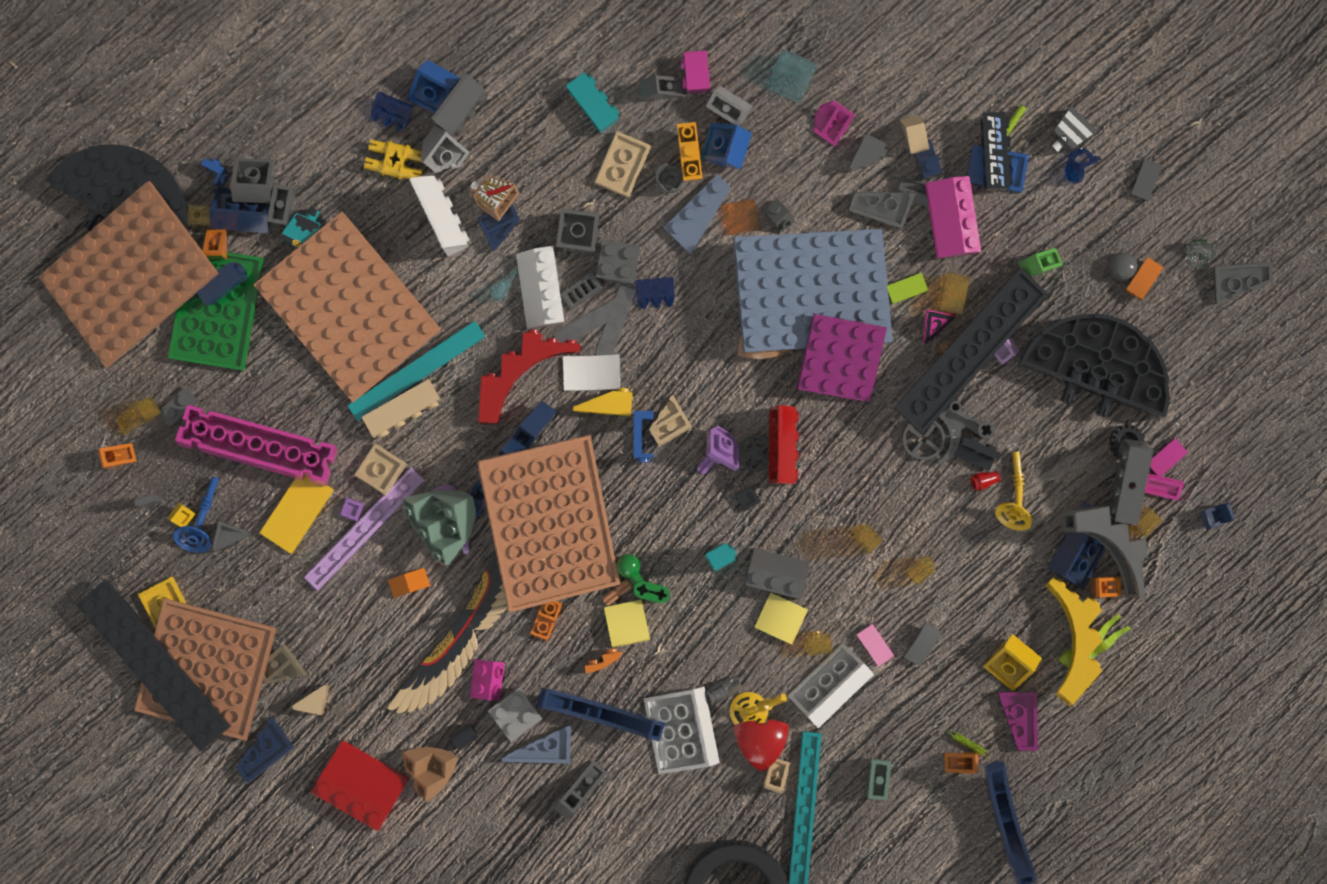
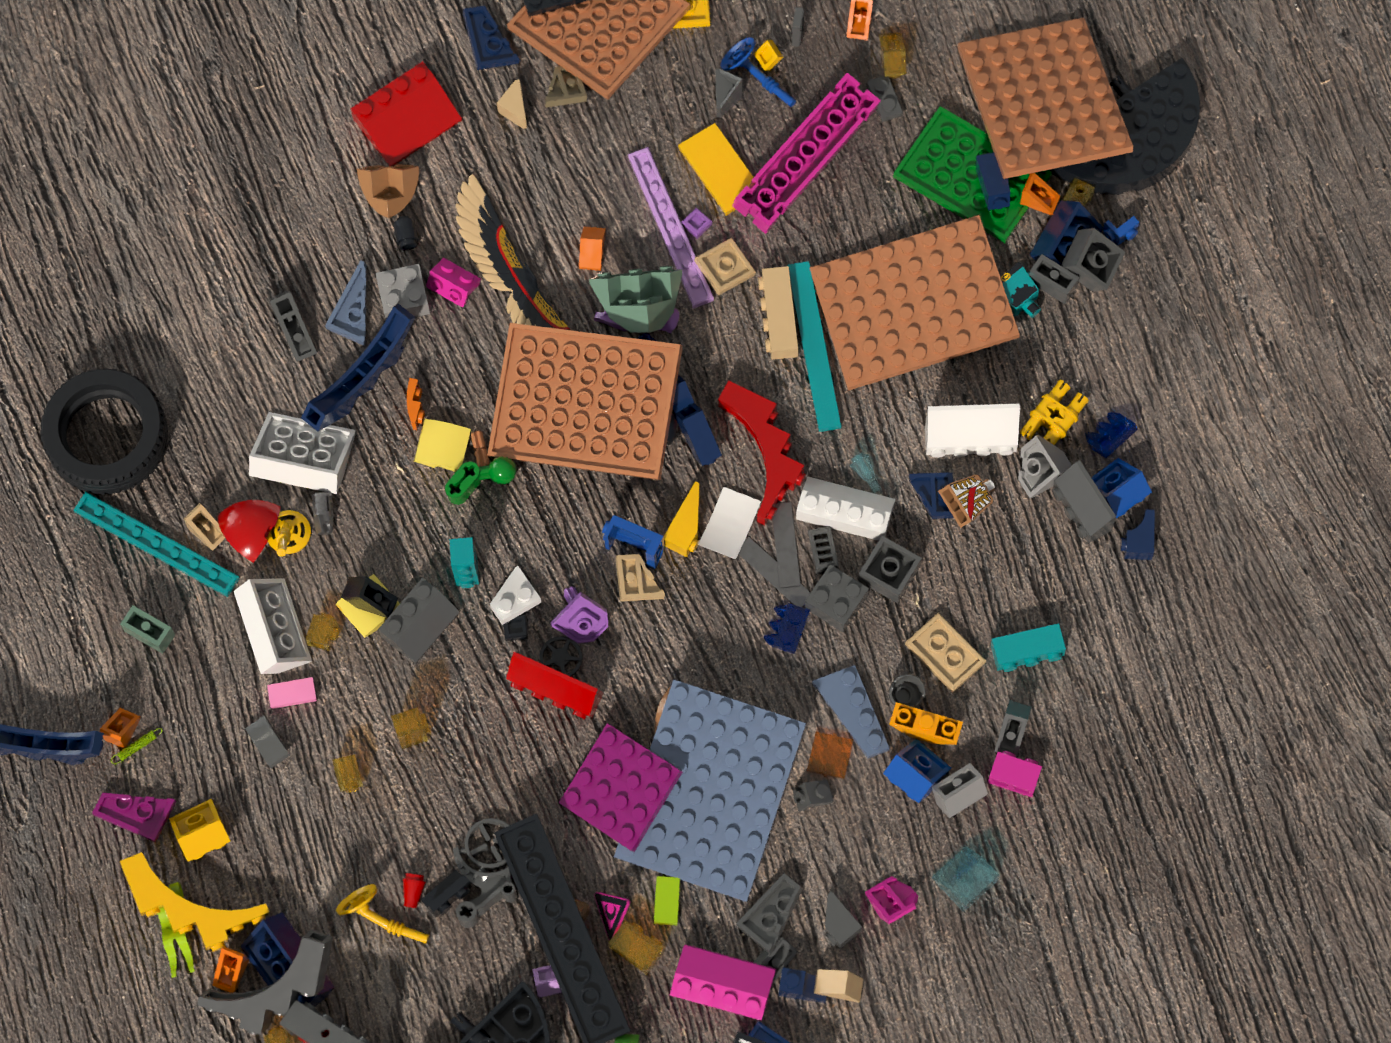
camera: 120 degrees right, 15 degrees down
(467, 52) = (1140, 541): none -> dark blue arch
(546, 620) = (485, 365): orange slope -> none
(725, 509) = (514, 597): none -> white wing
(778, 618) = (369, 596): none -> black slope

